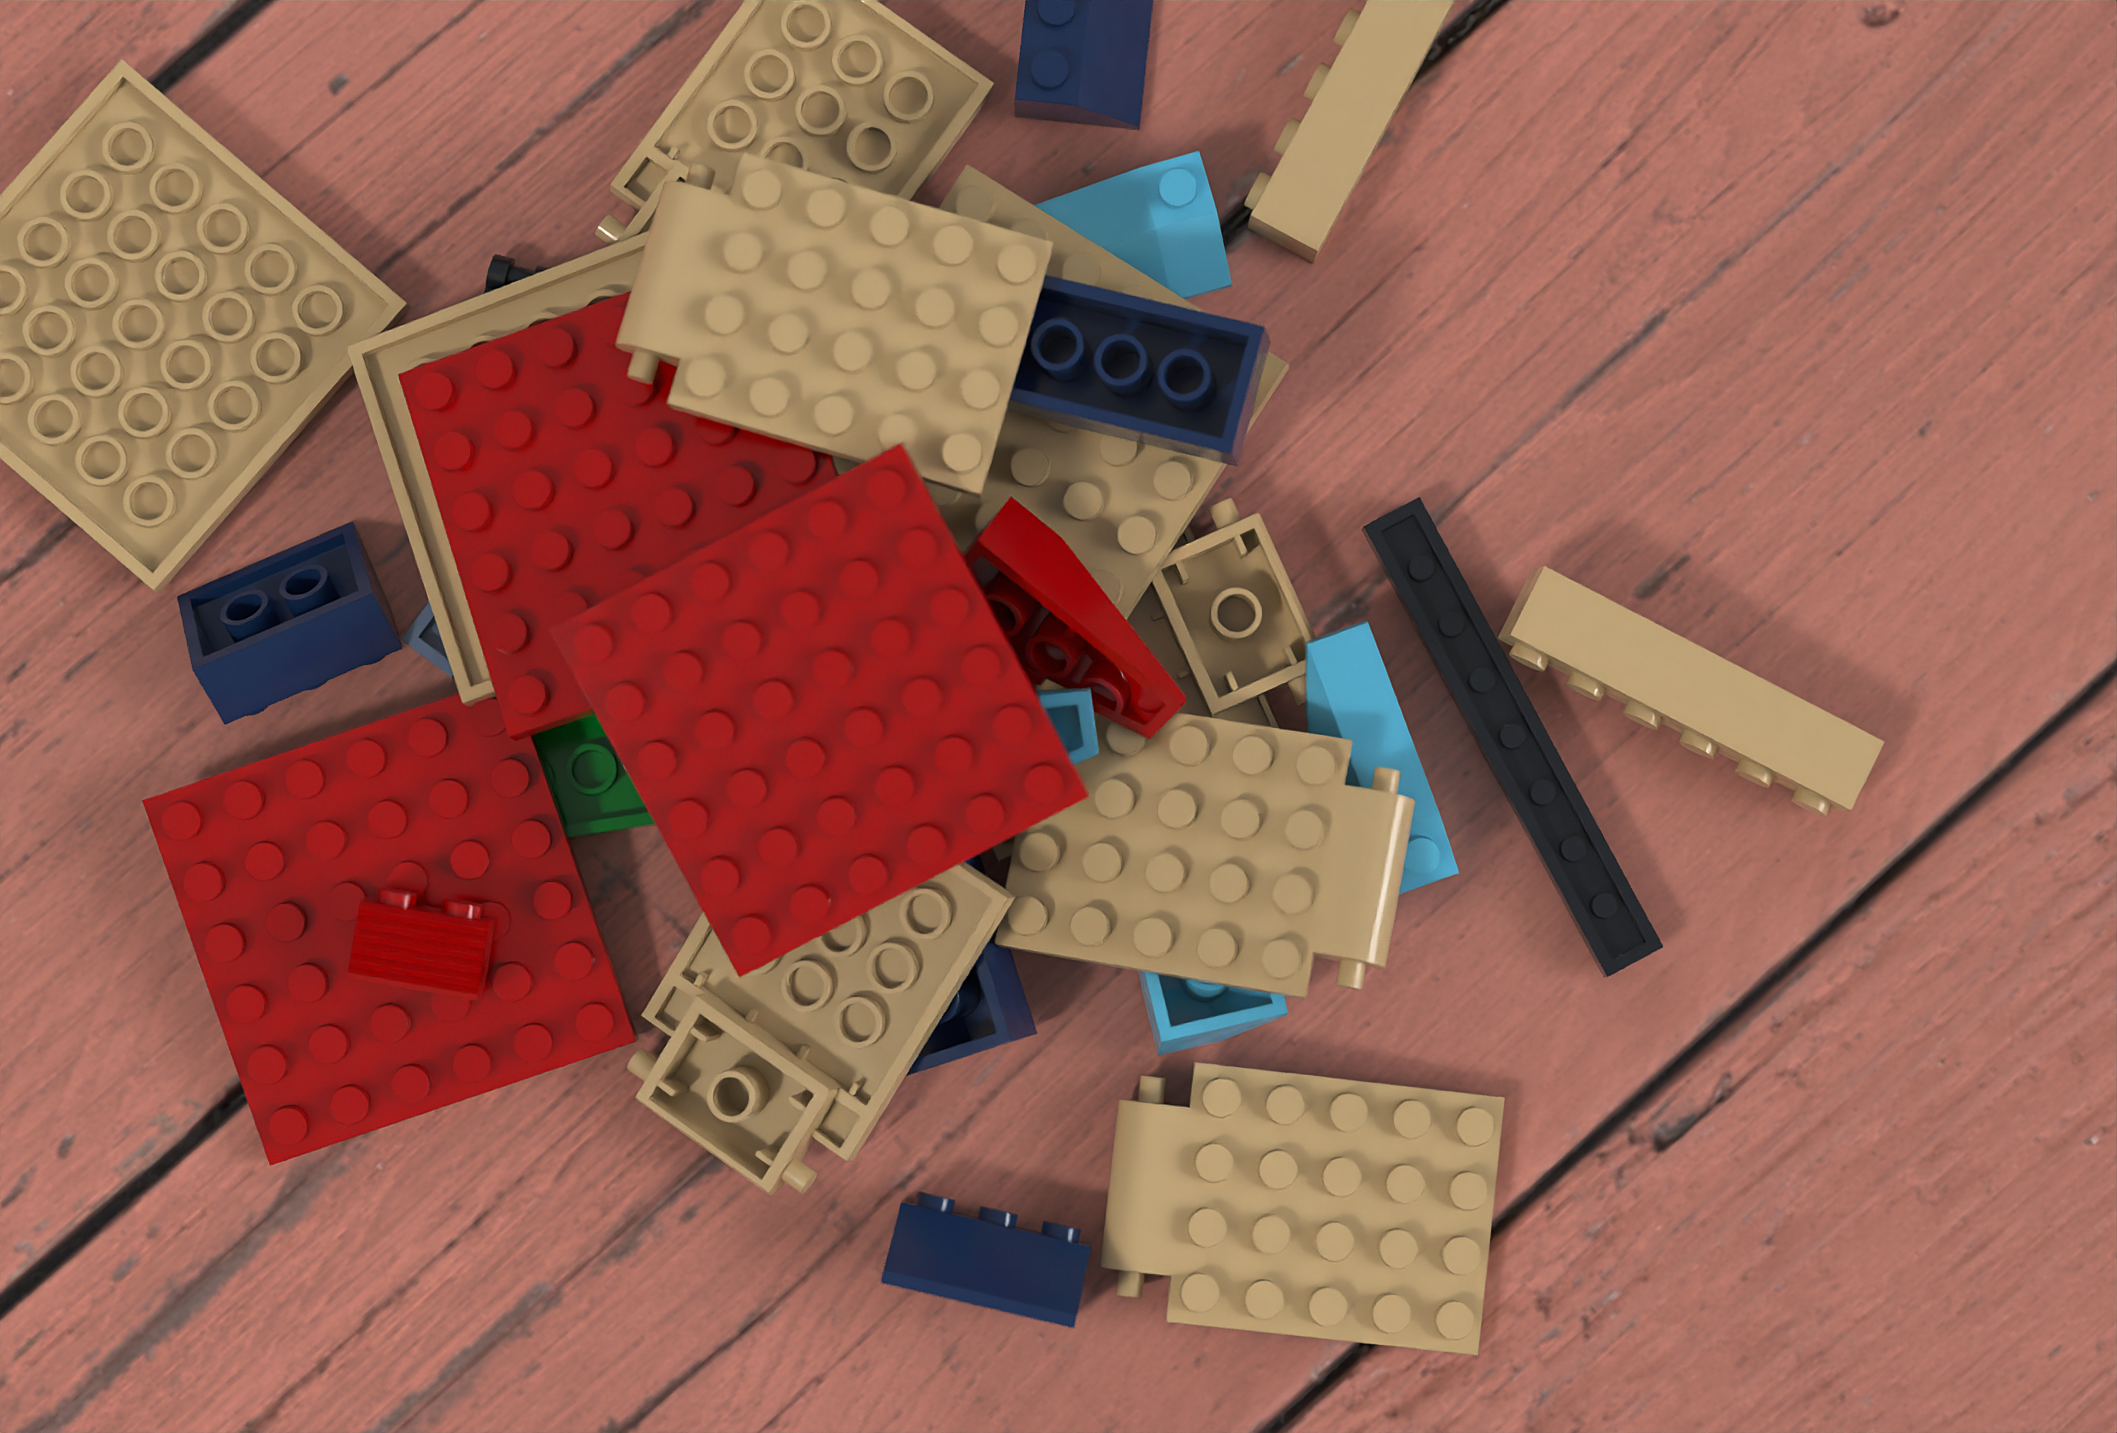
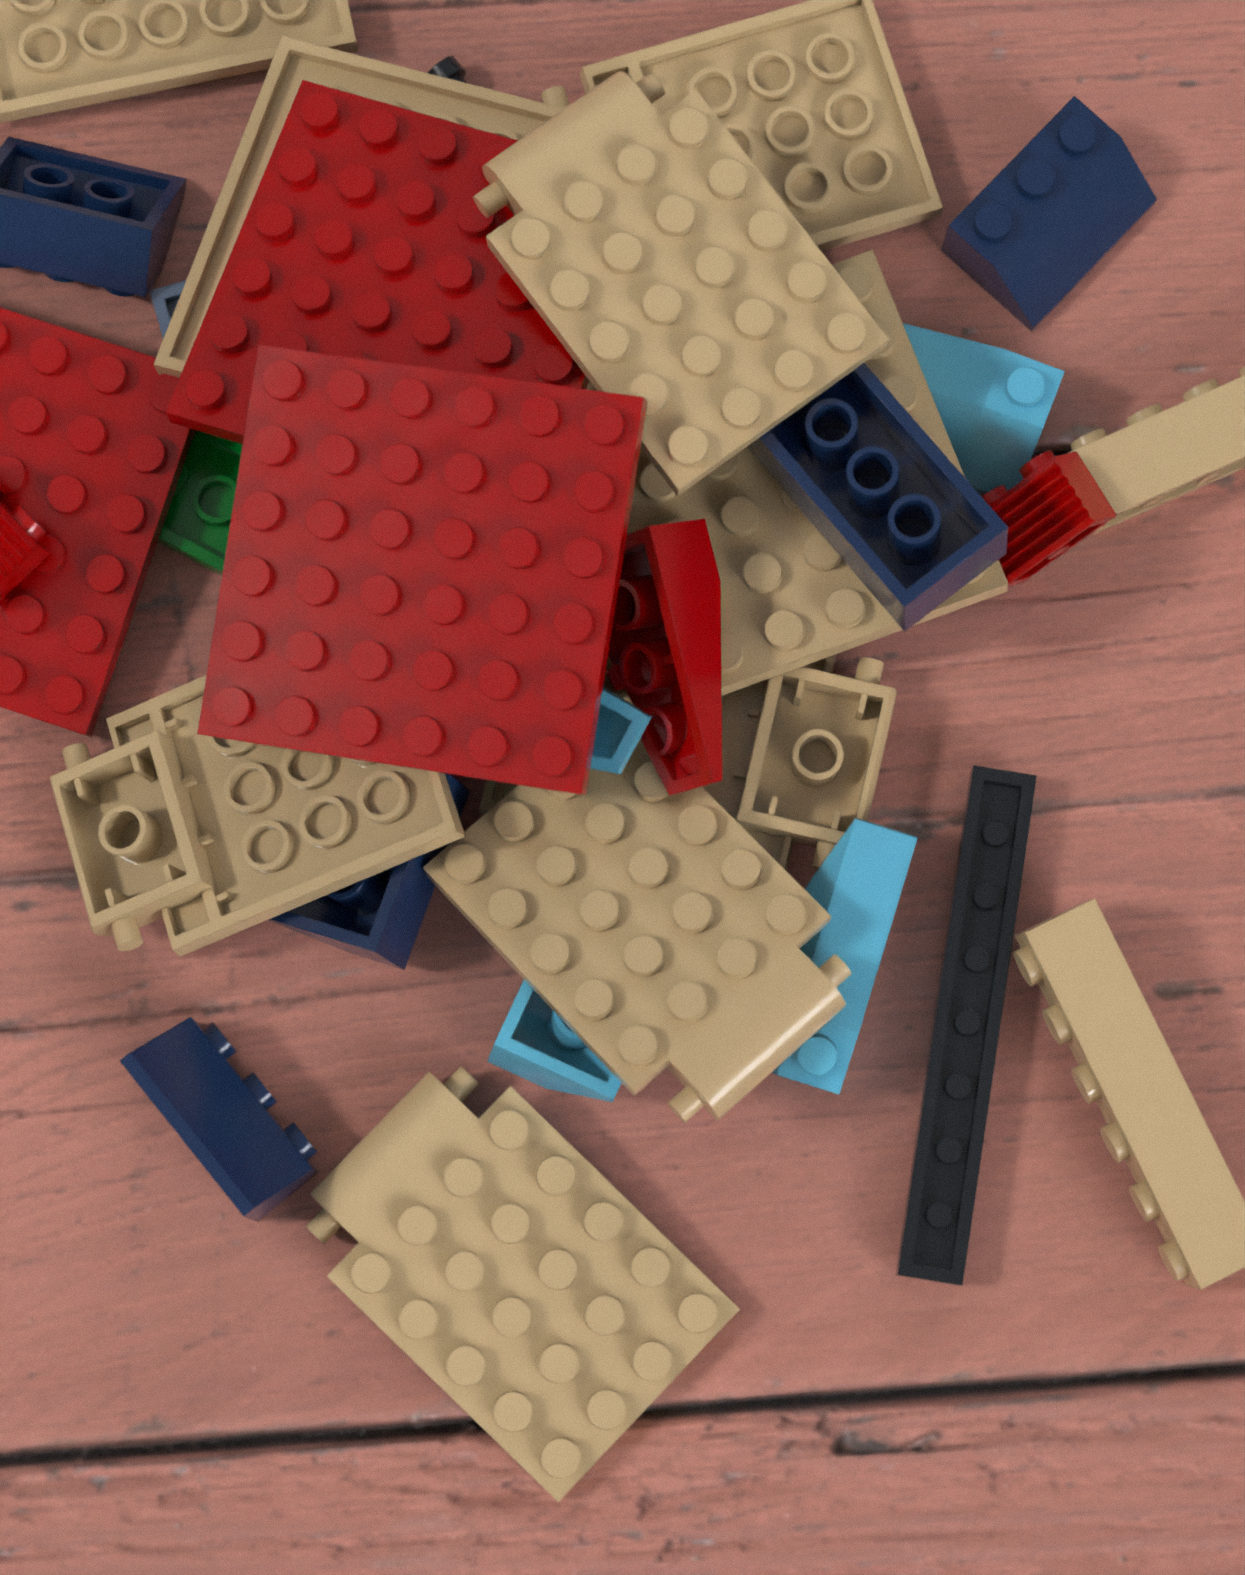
camera: 40 degrees right, 5 degrees down
(1270, 277) = (1047, 512): none -> red brick

